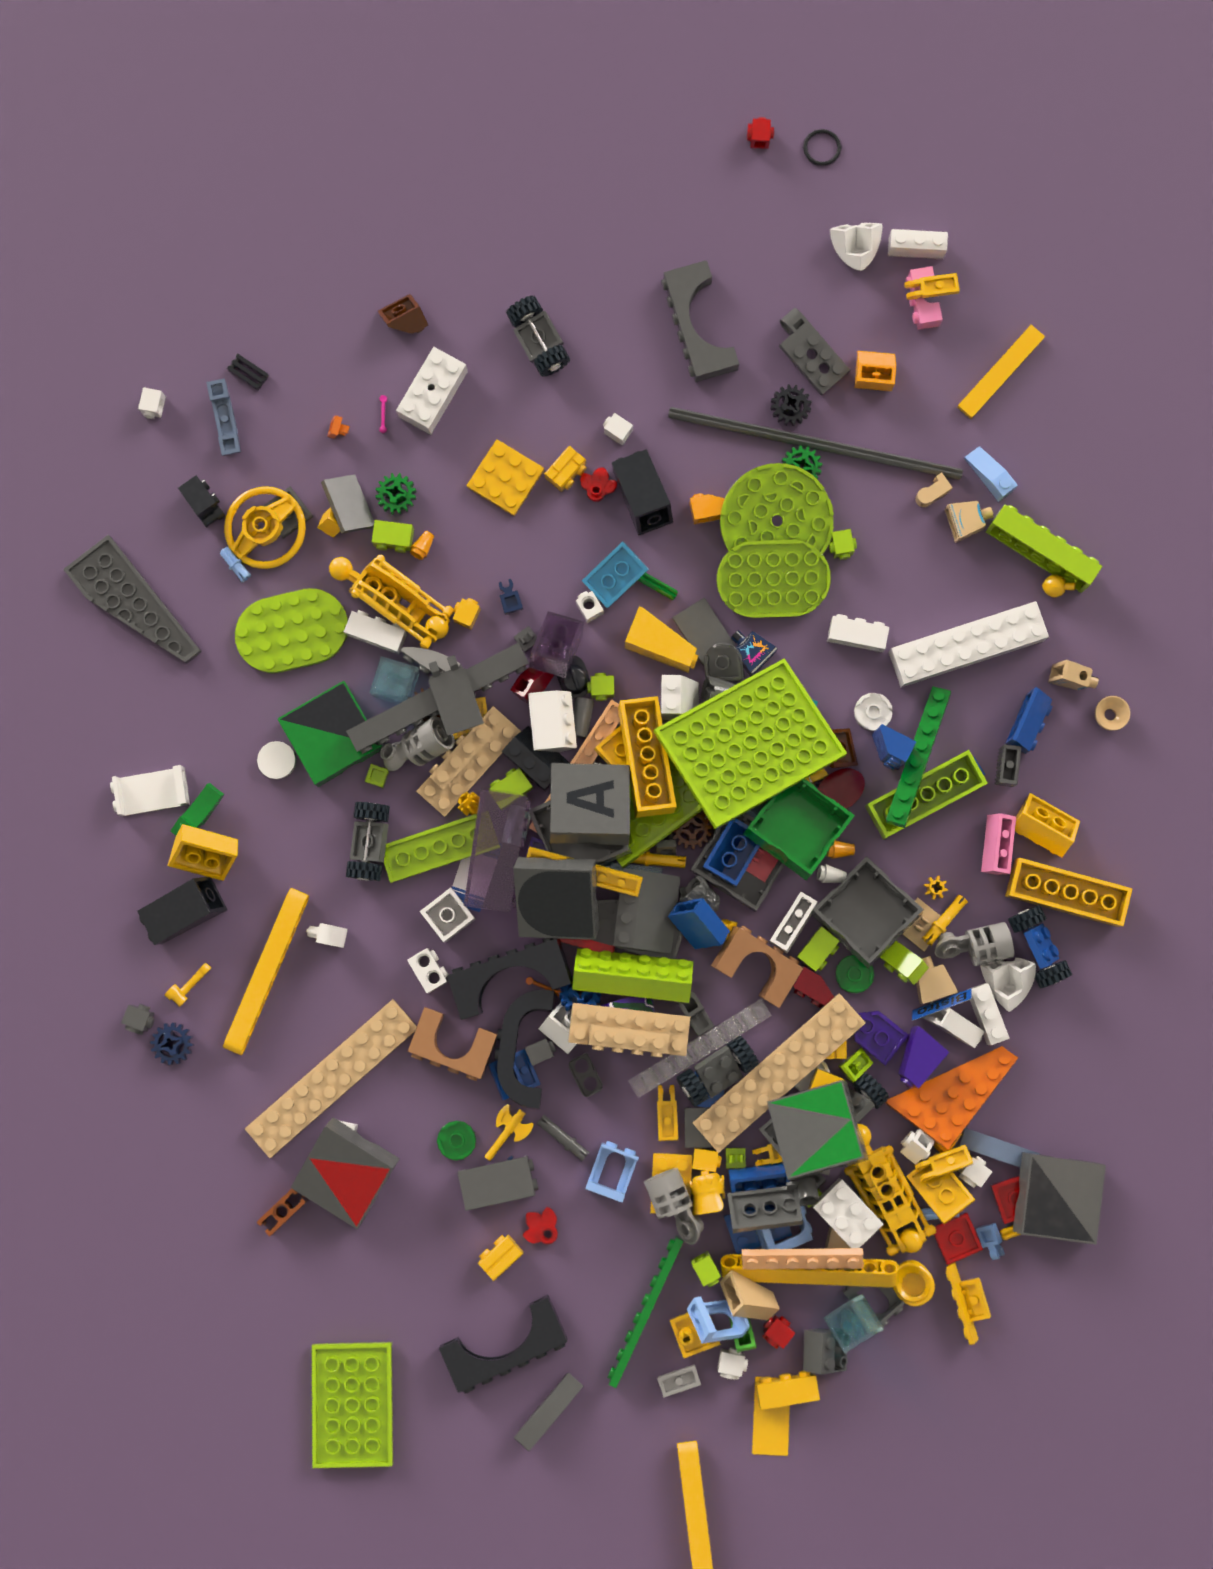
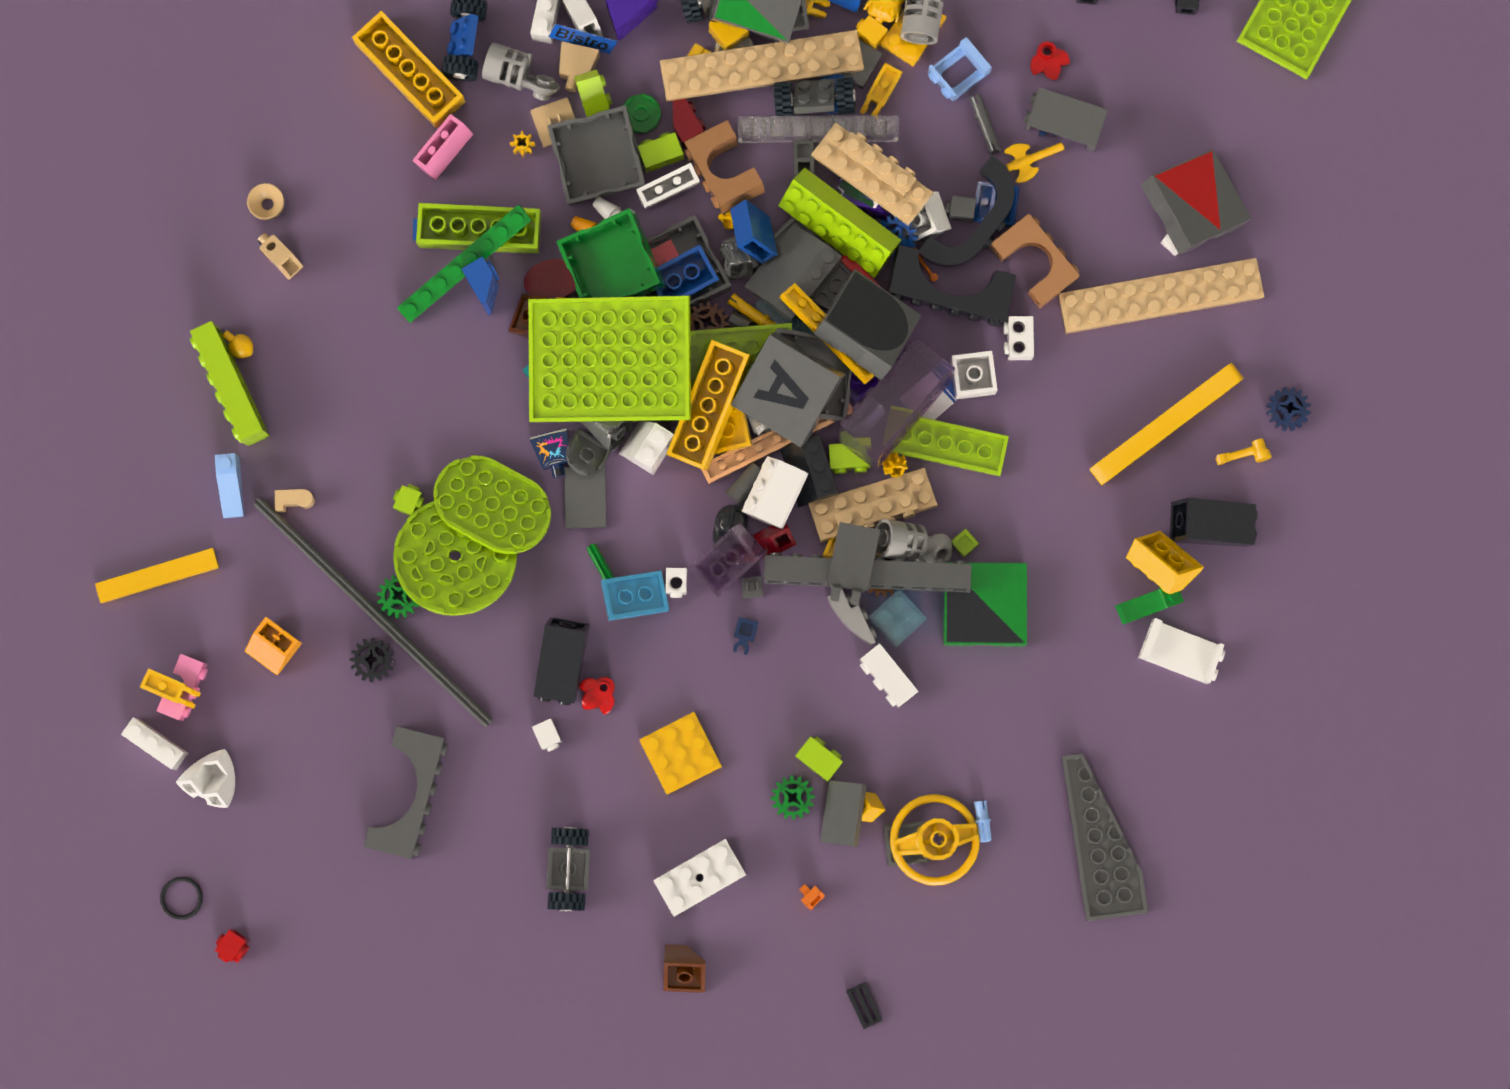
camera: 150 degrees left, 0 degrees up
(138, 1018) = (1306, 449): dark grey brick -> none
(151, 403) = (974, 1027): white brick -> none
(201, 501) = (980, 899): black hinge -> none
(224, 417) = (912, 971): sand blue slope -> none
(274, 1211) = (1275, 199): dark orange piece -> none
(276, 760) = (1048, 612): white tile -> none
(291, 630) = (965, 726): lime plate -> none
(328, 934) = (1091, 420): white beam -> none
(368, 841) = (1007, 483): plate -> none
(383, 399) = (750, 900): dark pink hinge -> none
(395, 584) = (829, 647): yellow piece -> none
(422, 545) = (798, 732): light orange cone -> none
(456, 1140) = (1080, 177): green tile -> none
(466, 612) = (793, 644): yellow brick -> none
(501, 1257) = (1100, 55): yellow brick -> none
(566, 469) = (619, 725): yellow brick -> none
(582, 1076) = (941, 149): dark grey piece -> none
(601, 686) = (710, 500): lime brick -> none
(657, 641) = (635, 510): yellow slope -> none
(705, 508) = (512, 610): light orange slope -> none
(735, 1157) = (843, 19): lime tile -> none
(804, 338) = (318, 715): dark grey hinge -> none
(855, 1065) = (689, 34): lime slope -> none
(858, 633) = (446, 410): white brick -> none
(873, 711) = (477, 333): white tile -> none
(879, 1036) = (652, 45): dark purple tile -> none
(944, 920) = (538, 109): yellow pin -> none
(967, 519) = (279, 454): tan torso -> none
(968, 644) = (353, 340): white brick -> none
(1008, 765) = (389, 210): dark grey brick -> none
(1009, 980) = (509, 25): white brick -> none
(1030, 720) = (344, 238): blue slope -> none
(1046, 825) = (388, 140): yellow slope -> none

